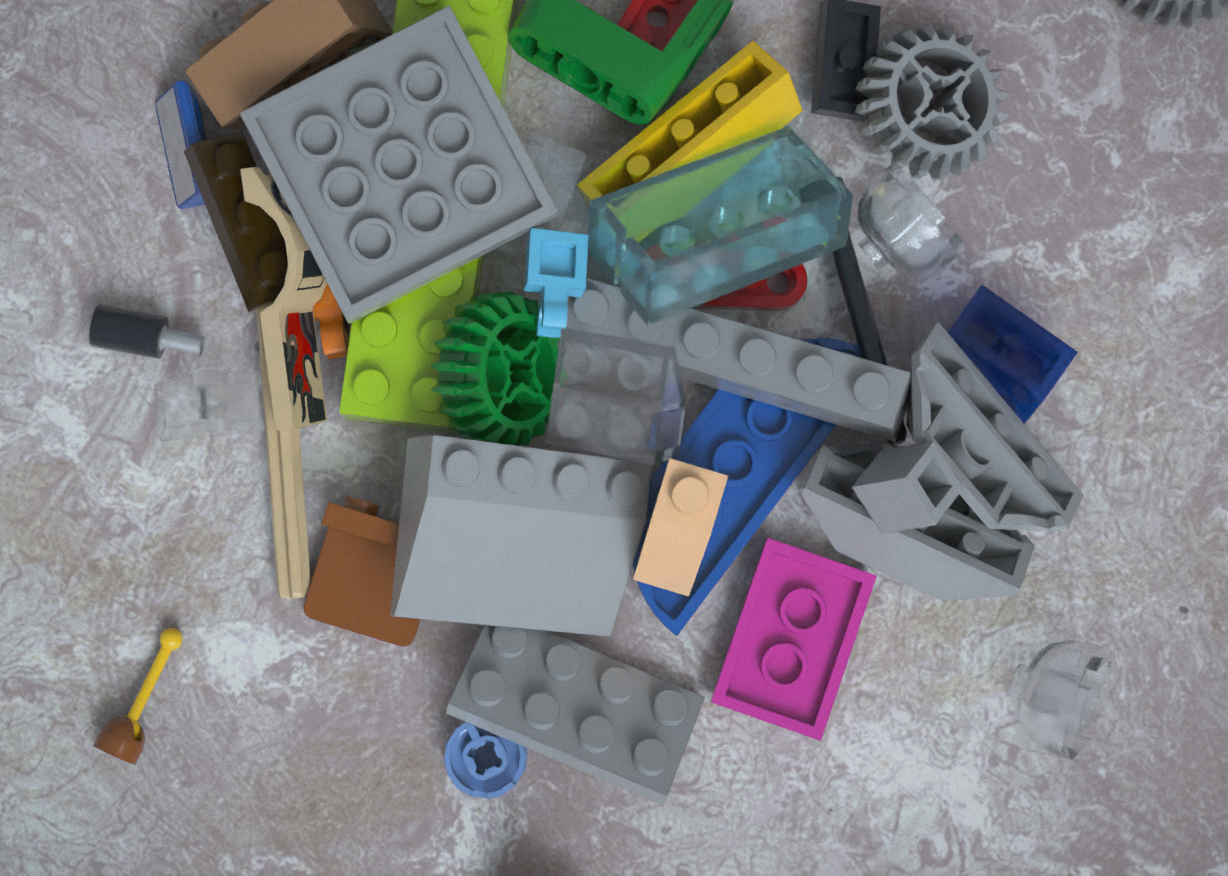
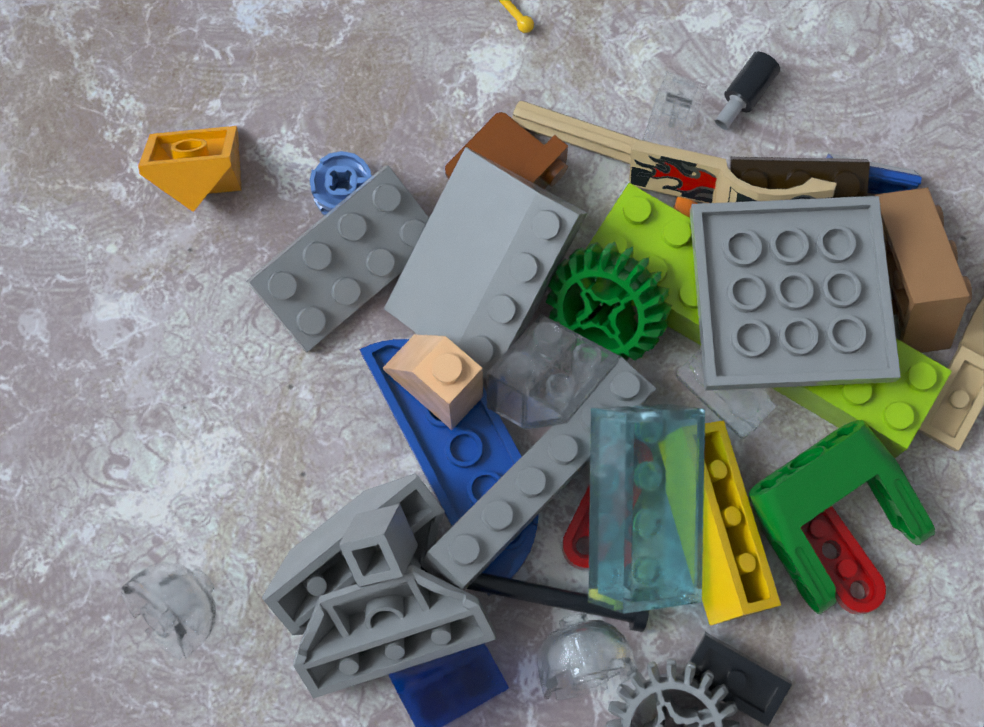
camera: 115 degrees right, 10 degrees down
(556, 270) = (665, 369): medium azure plate -> none
(793, 639) = (317, 432): dark pink plate -> none

